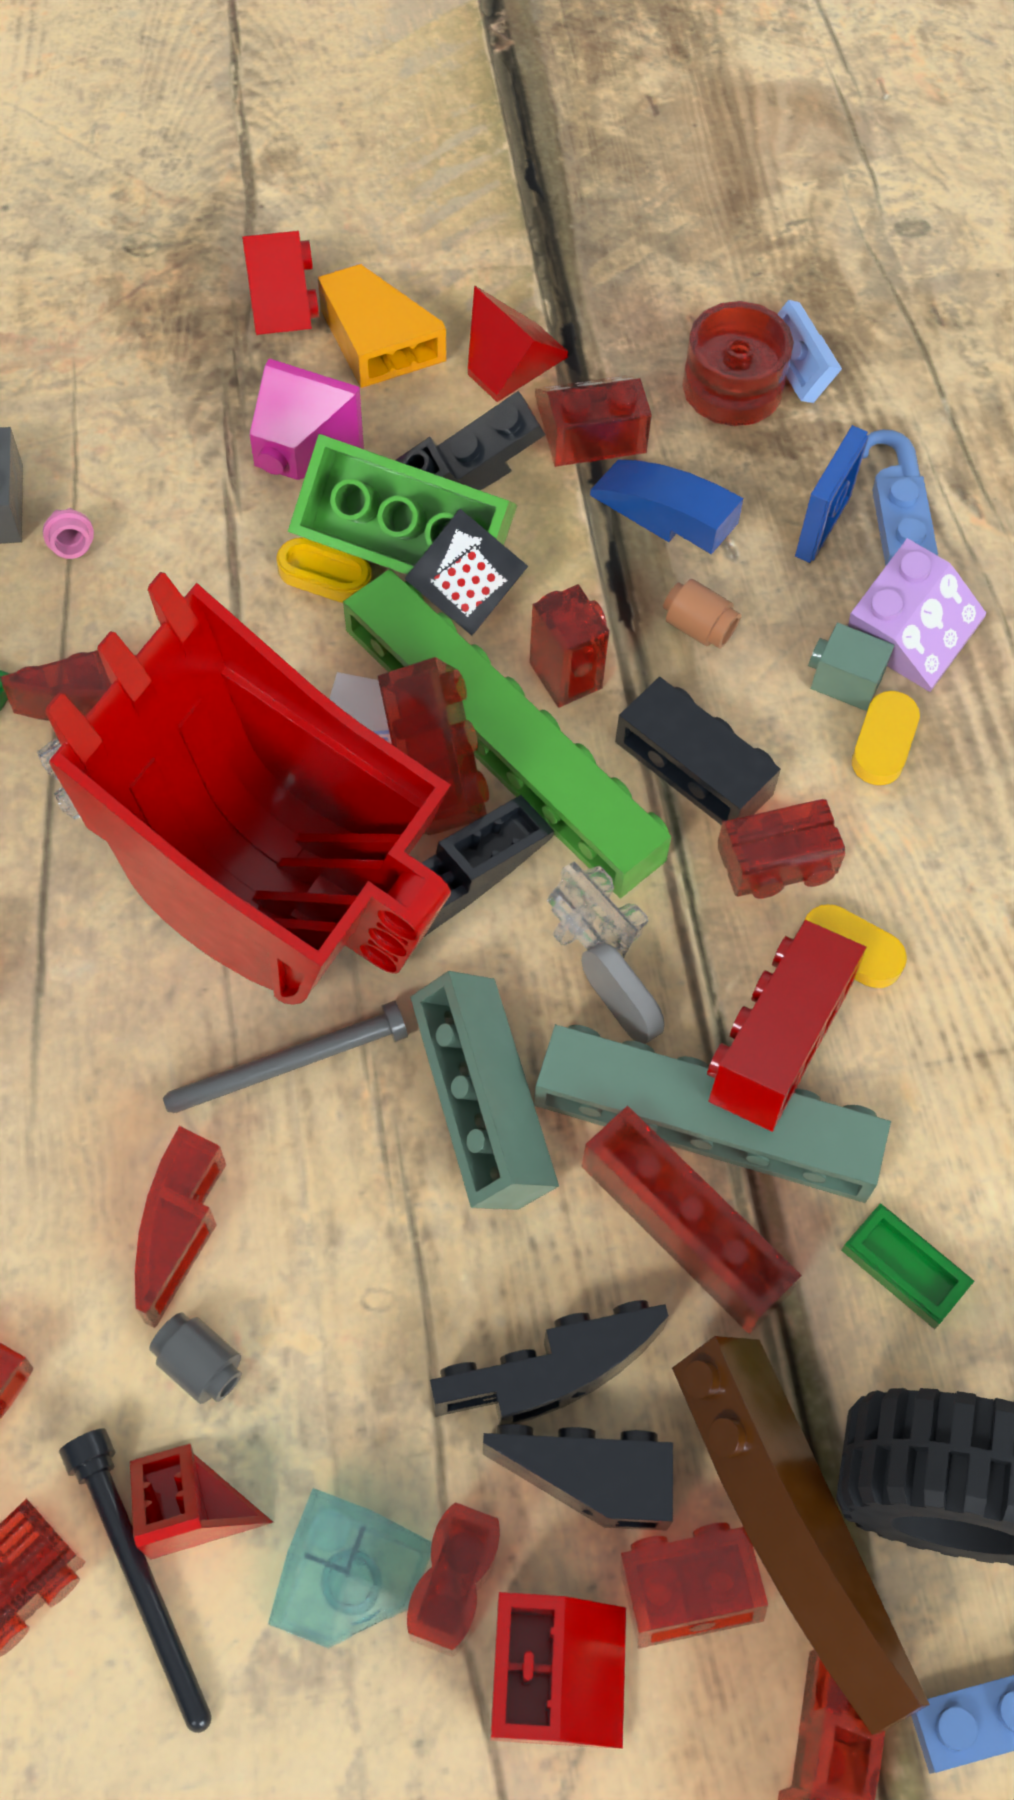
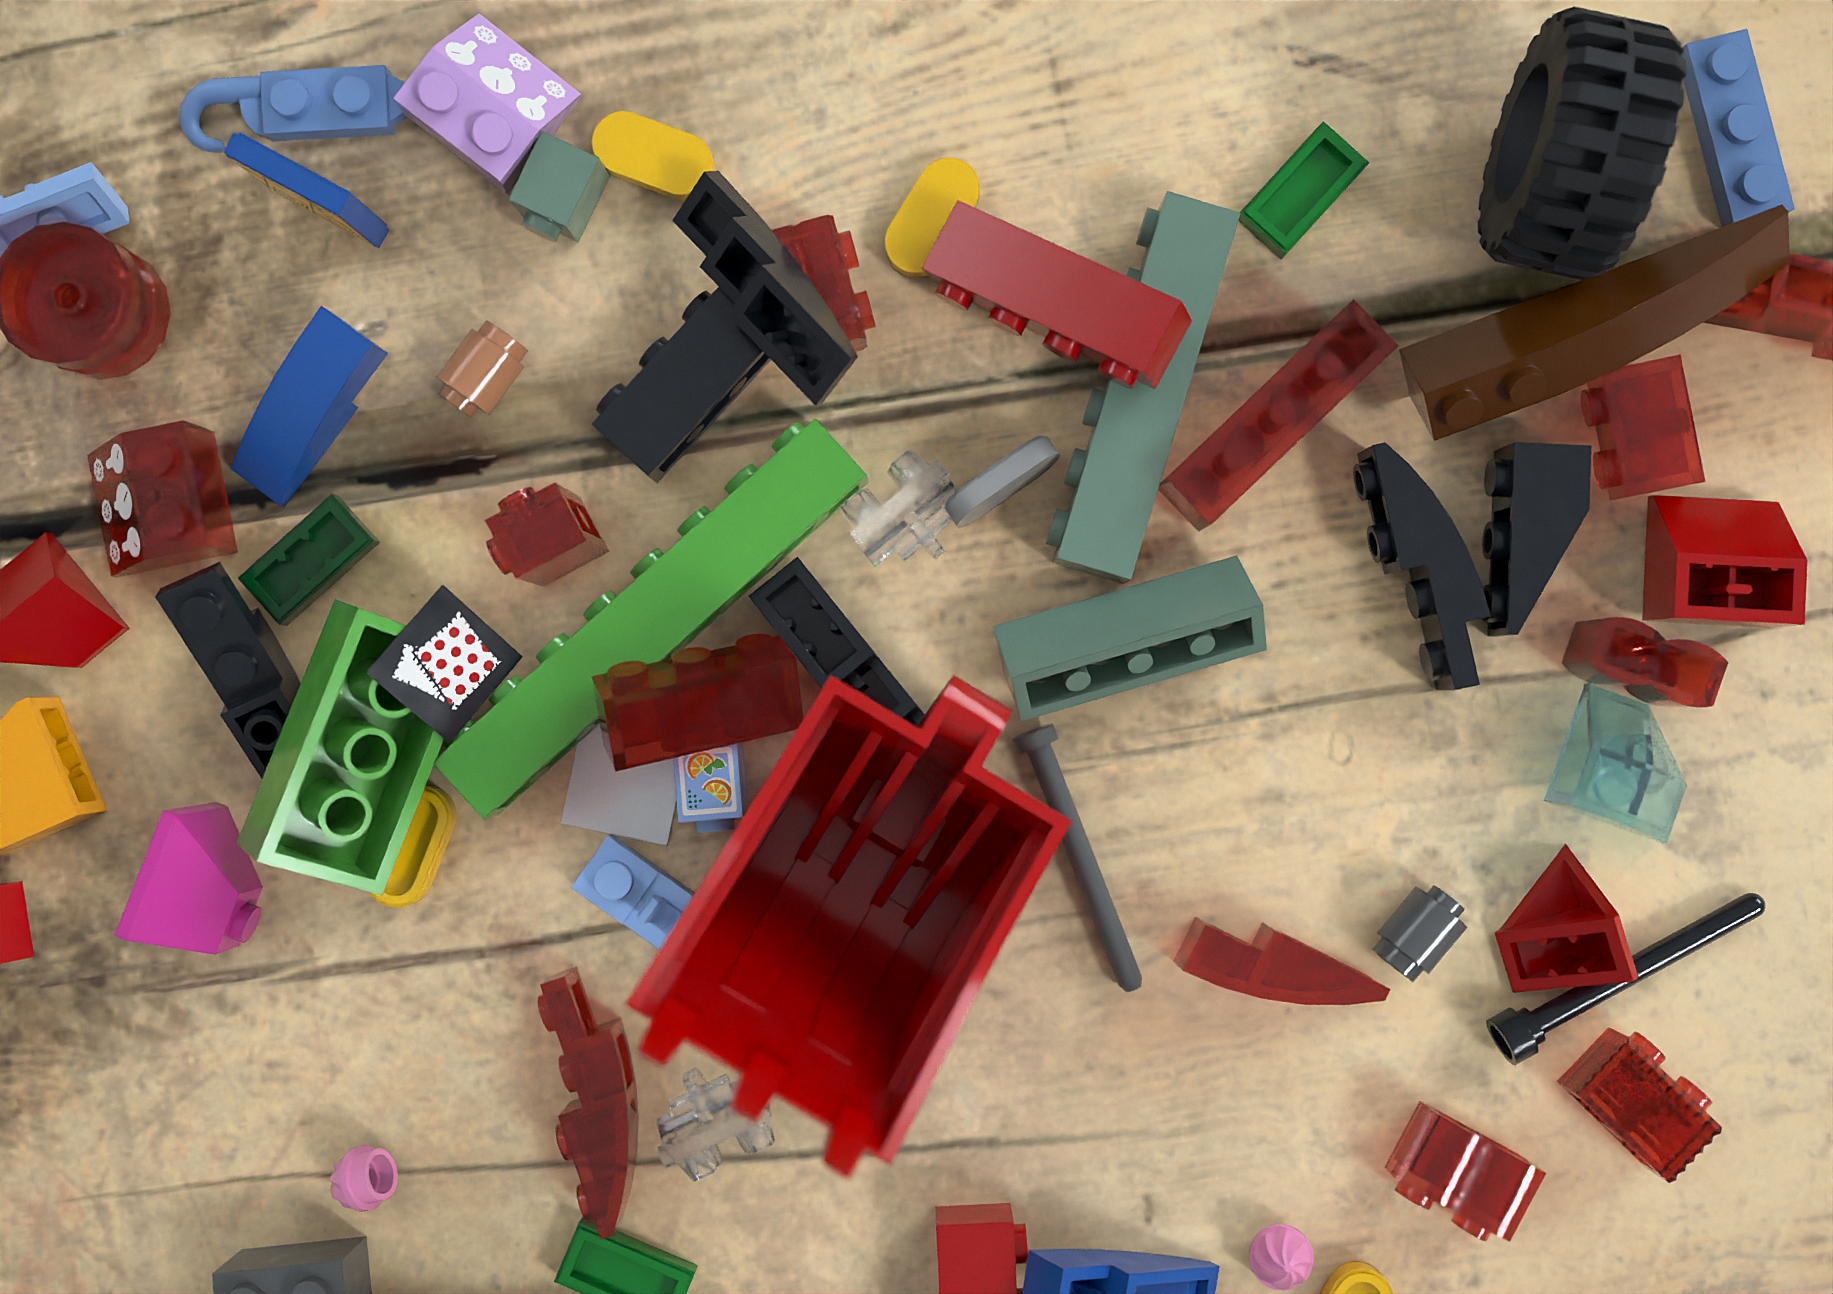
camera: 85 degrees left, 25 degrees up
(549, 504) = (308, 560): none -> dark green plate
(773, 795) = (768, 286): none -> black slope

